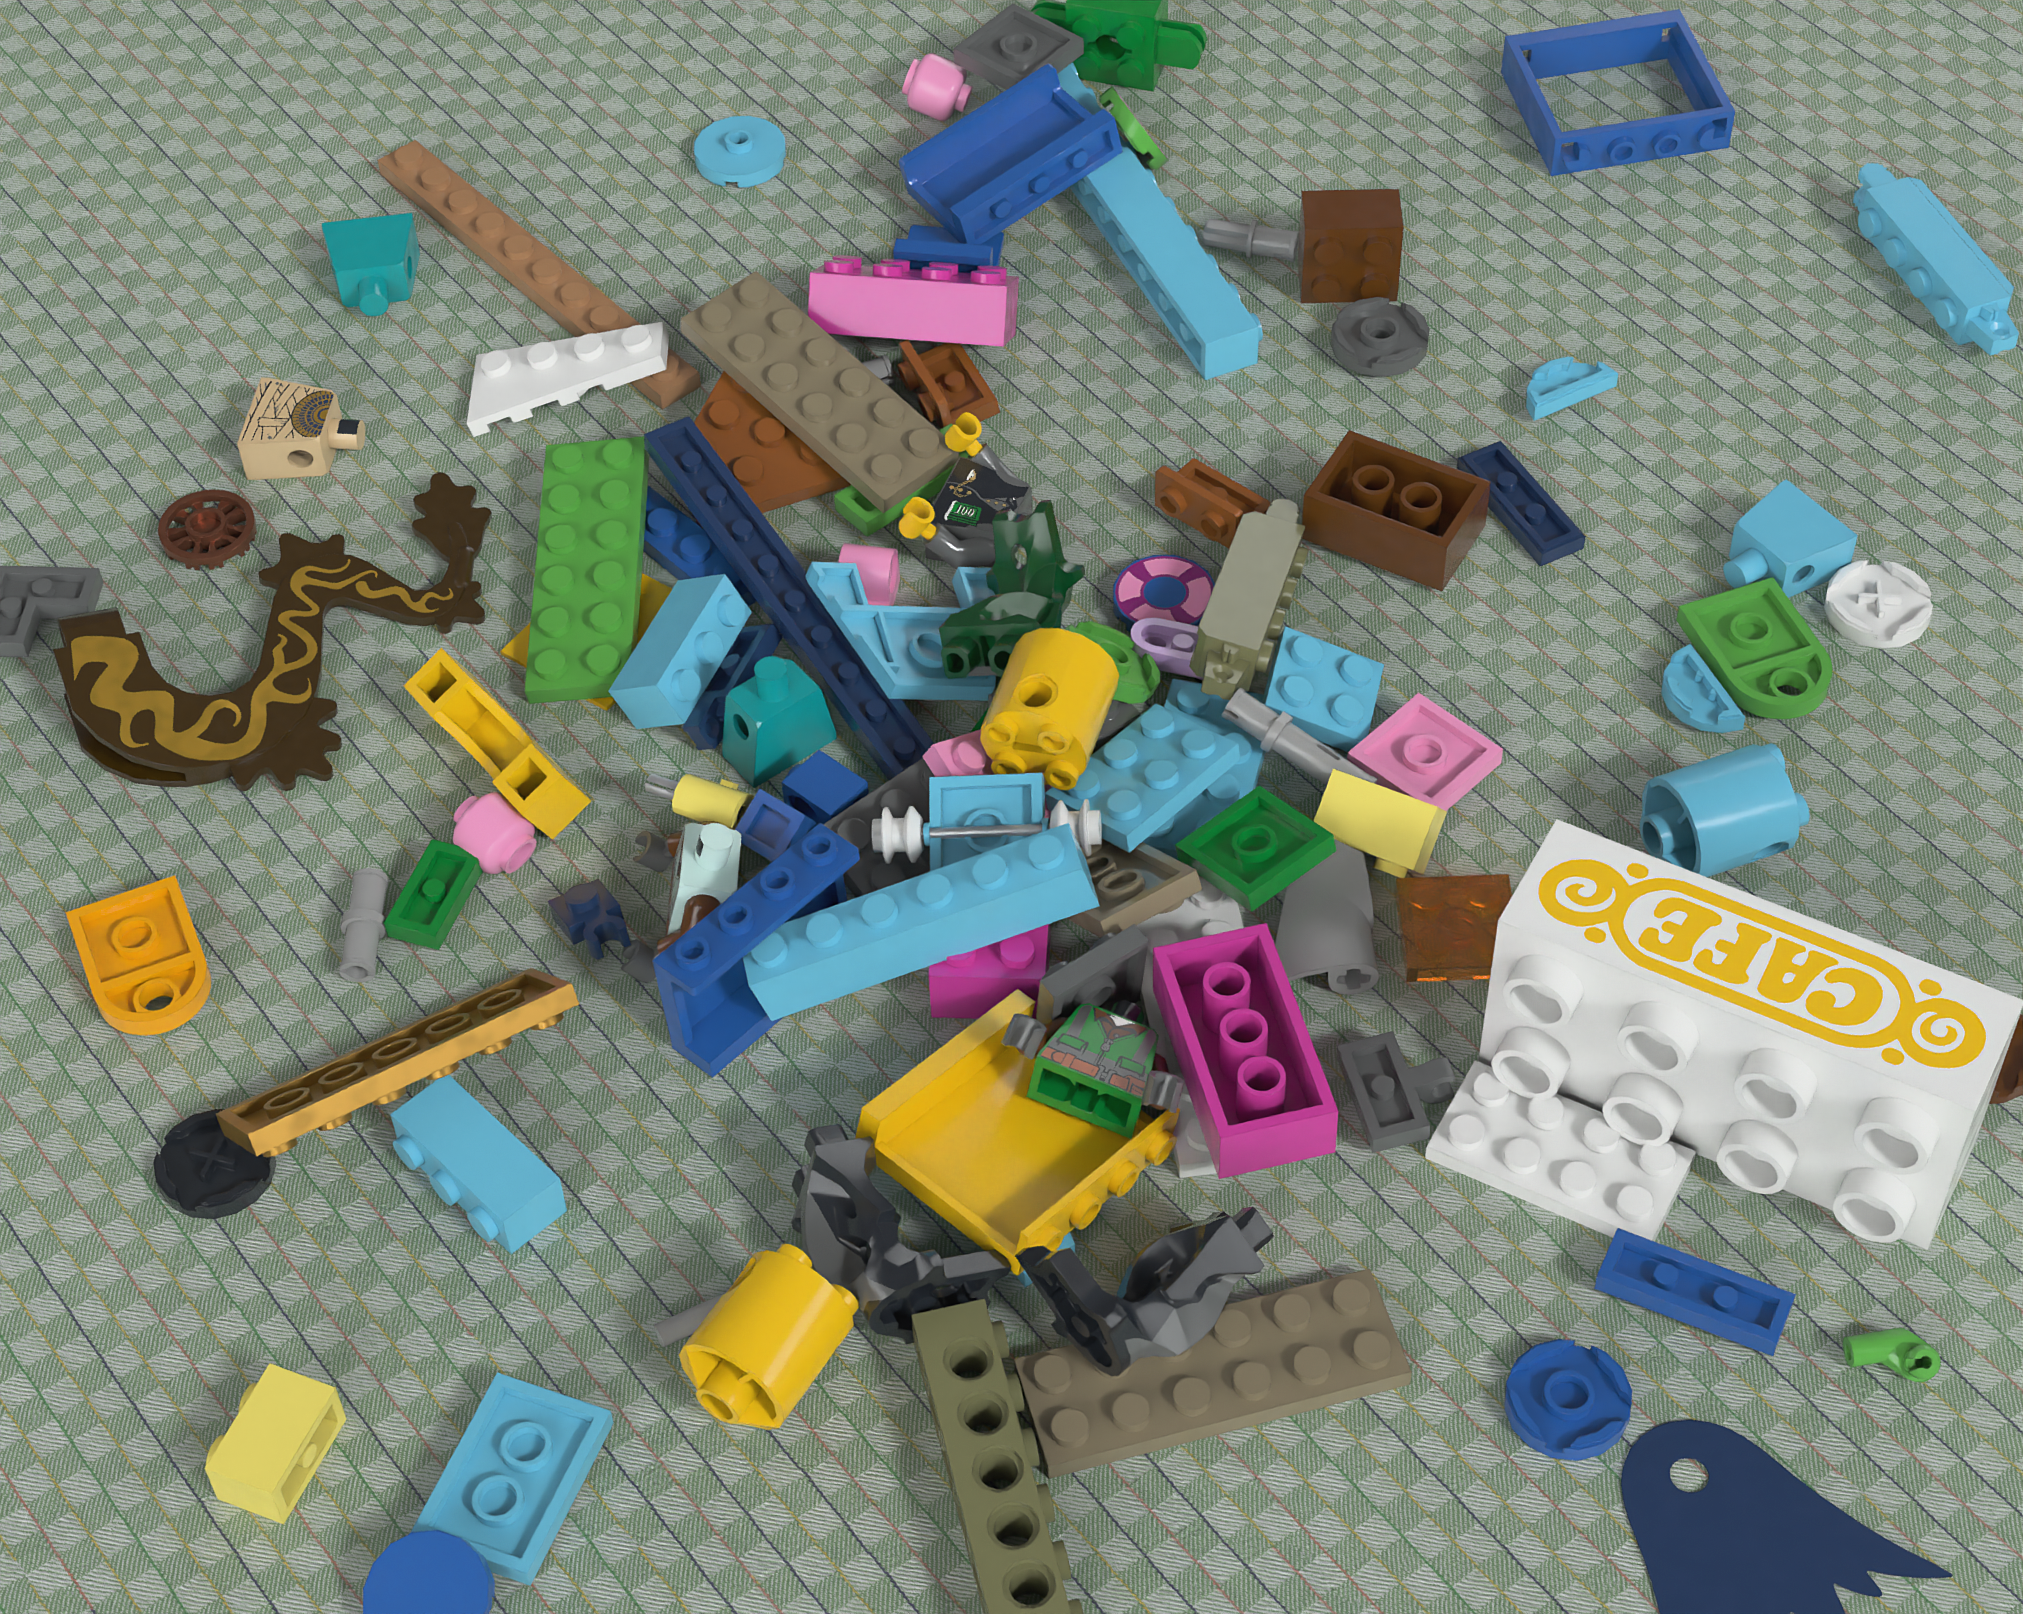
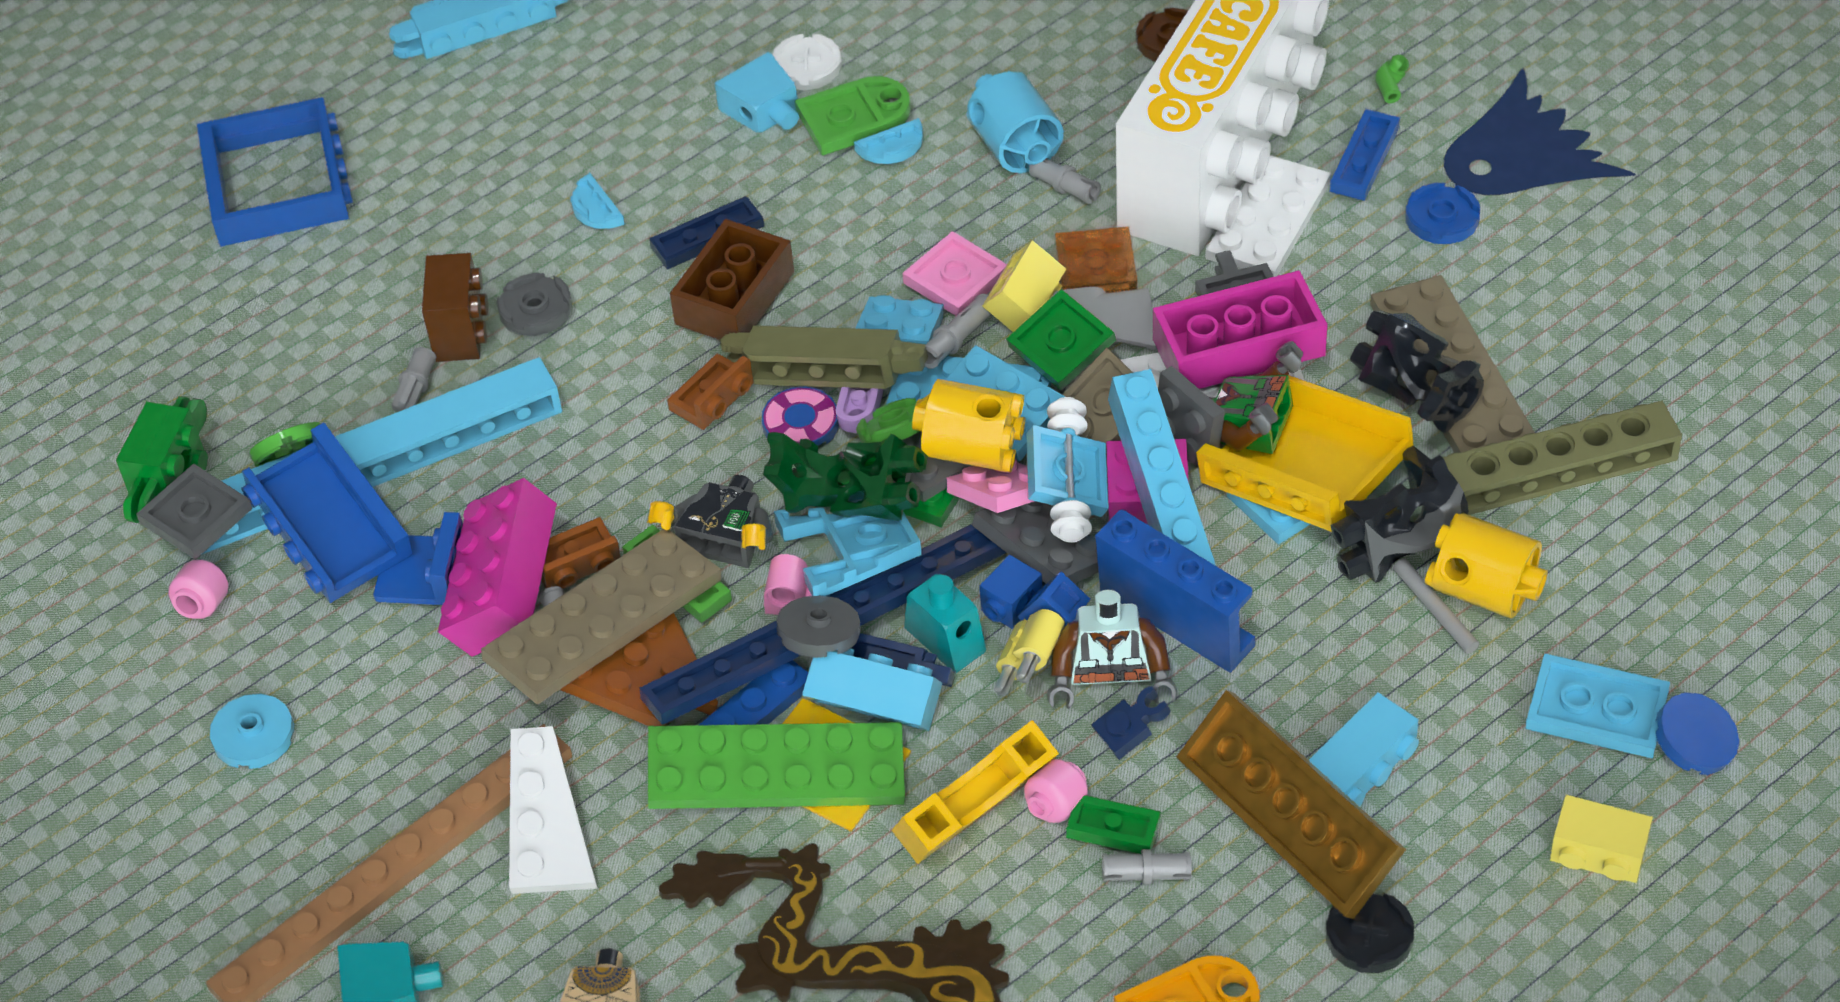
camera: 90 degrees left, 0 degrees up
(747, 591) = (818, 626): none -> dark grey plate

